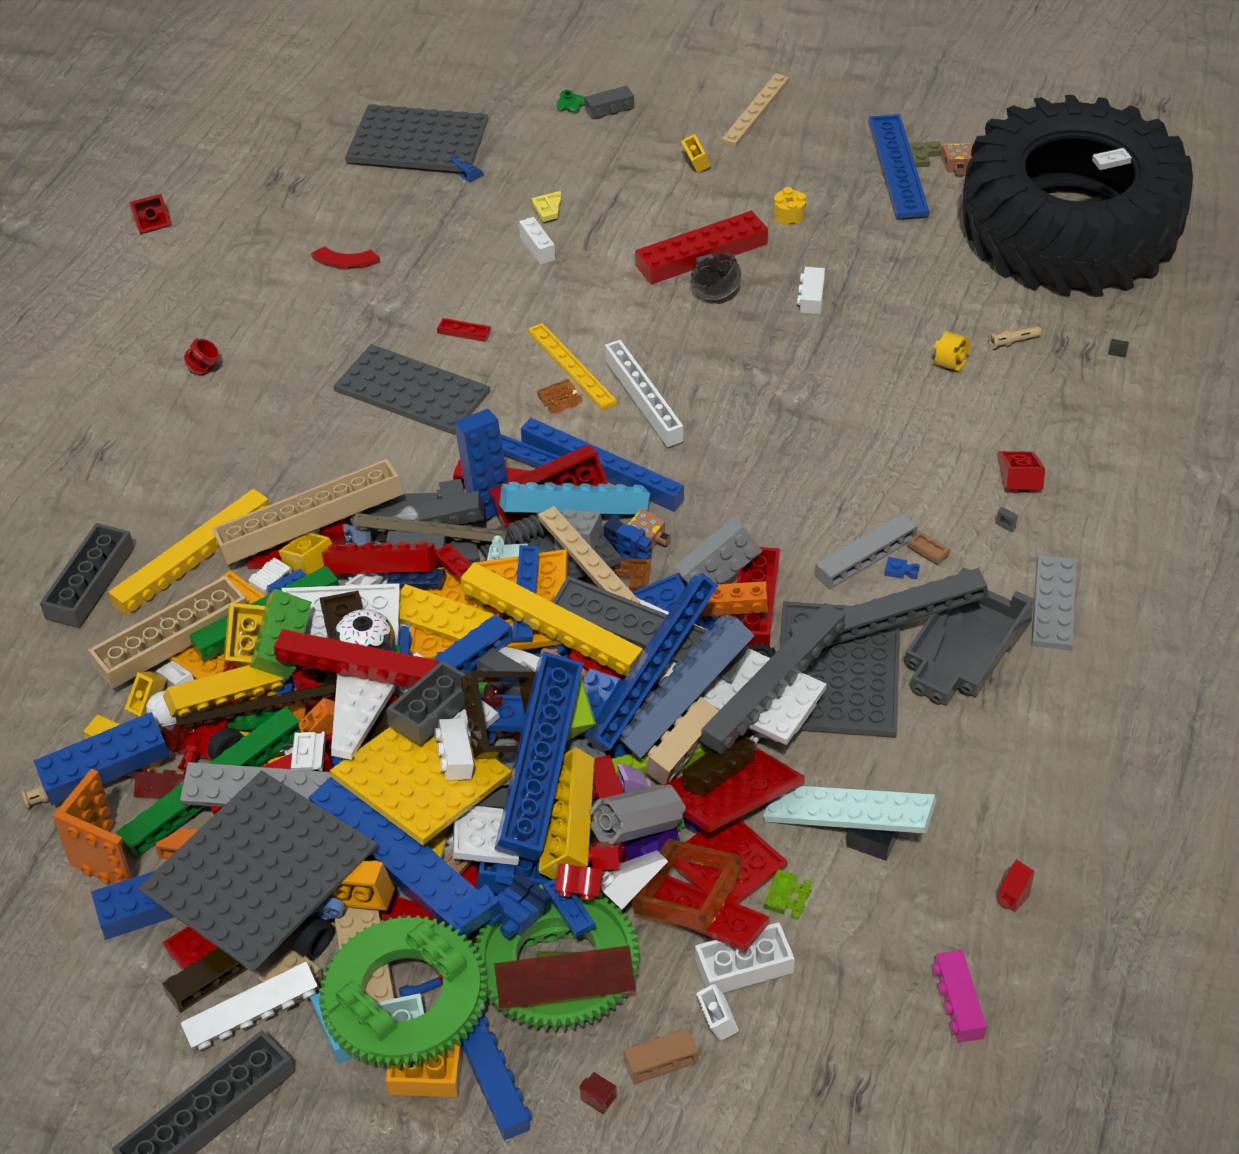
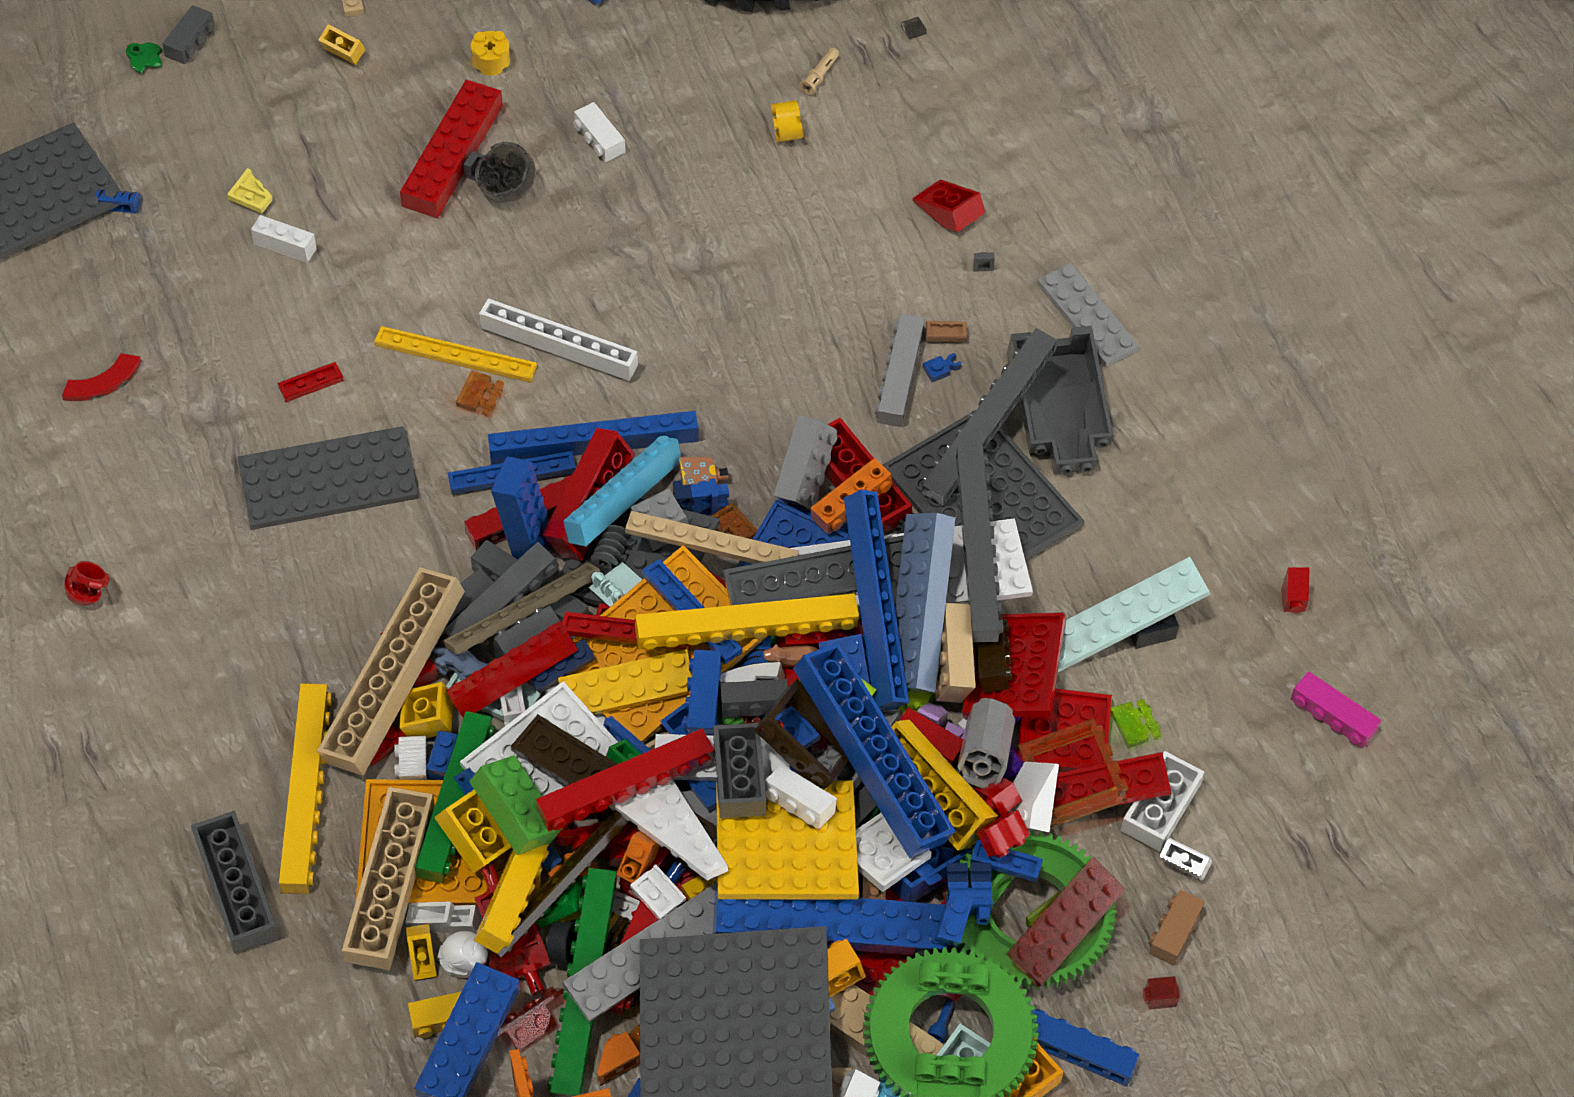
camera: 45 degrees left, 10 degrees up
(367, 629) = (597, 748): cylinder -> none

